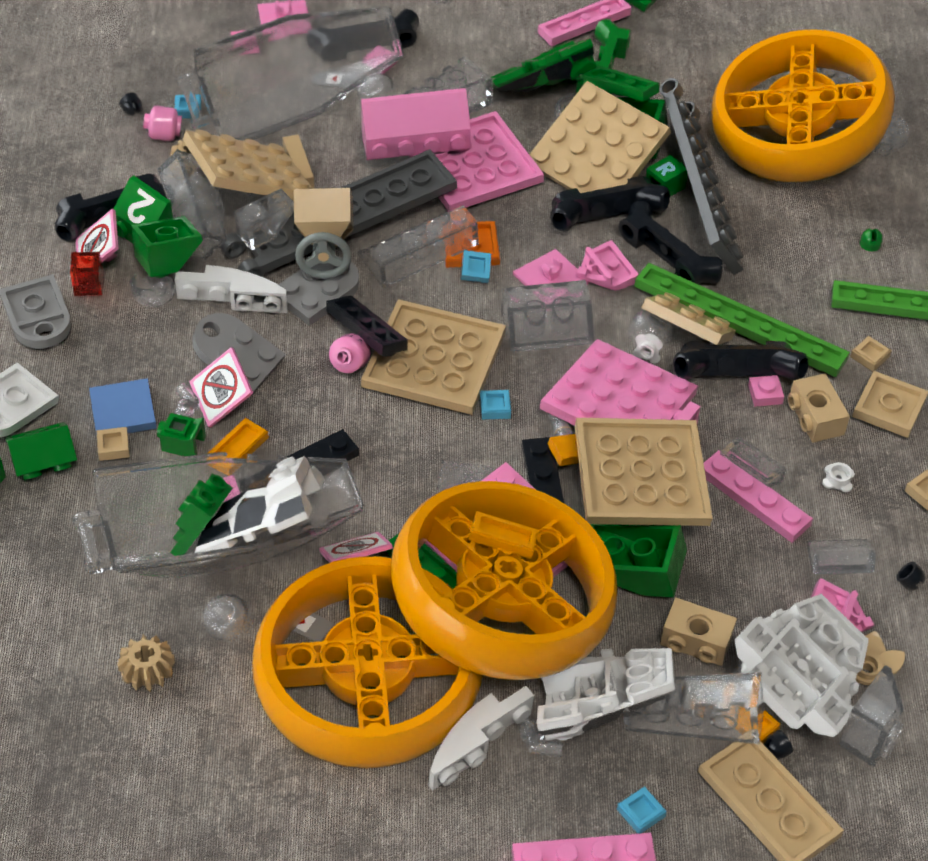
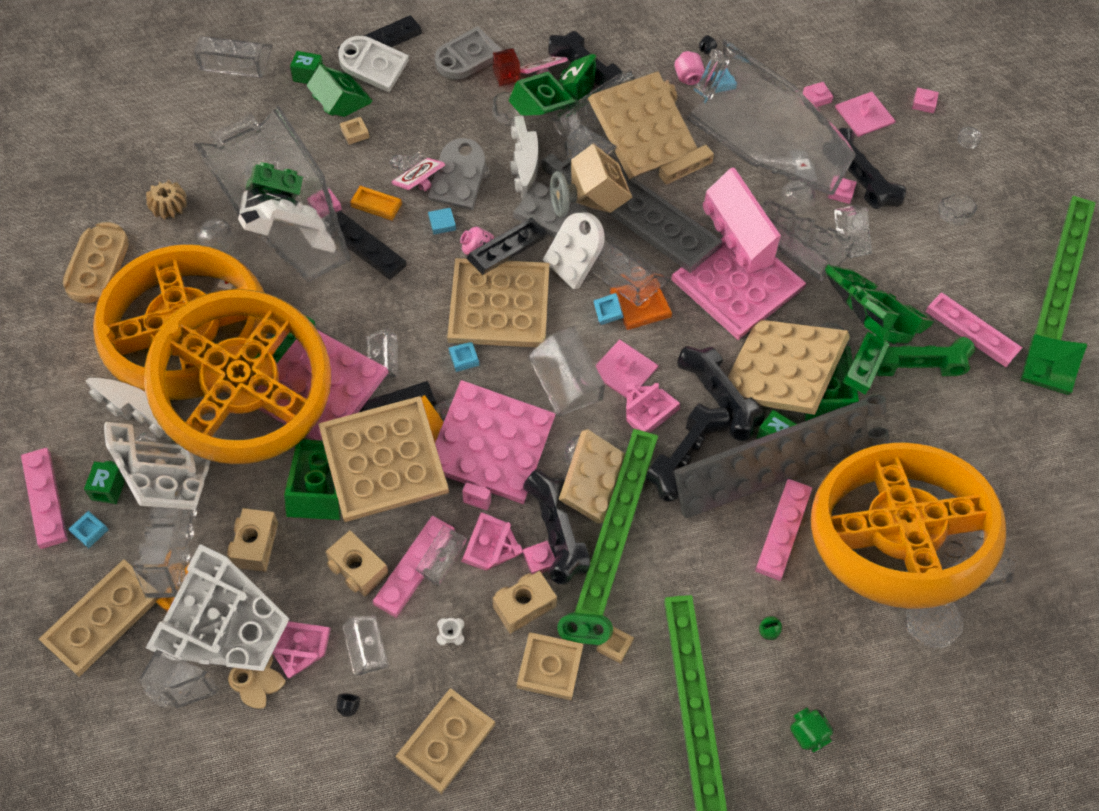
camera: 75 degrees right, 10 degrees up
(123, 406) = (392, 128): medium blue tile -> none
(179, 434) = (372, 161): green window -> none
(216, 765) = (95, 261): none -> tan tile
(292, 387) = (442, 221): none -> medium azure tile
(356, 547) = (285, 288): piece -> none
(399, 265) = (574, 249): none -> white plate
(433, 56) = (854, 222): none -> clear slope
(503, 534) = (270, 361): light orange tile -> none
(583, 777) = (104, 482): none -> green brick
(648, 341) = (556, 453): white plate -> none
(742, 421) = (490, 543): none -> bright pink slope
(747, 540) = (350, 550): none -> tan brick
(770, 205) = (783, 529): none -> bright pink plate
(778, 744) = (154, 616): black hinge -> none
(858, 367) = (586, 628): none -> green plate

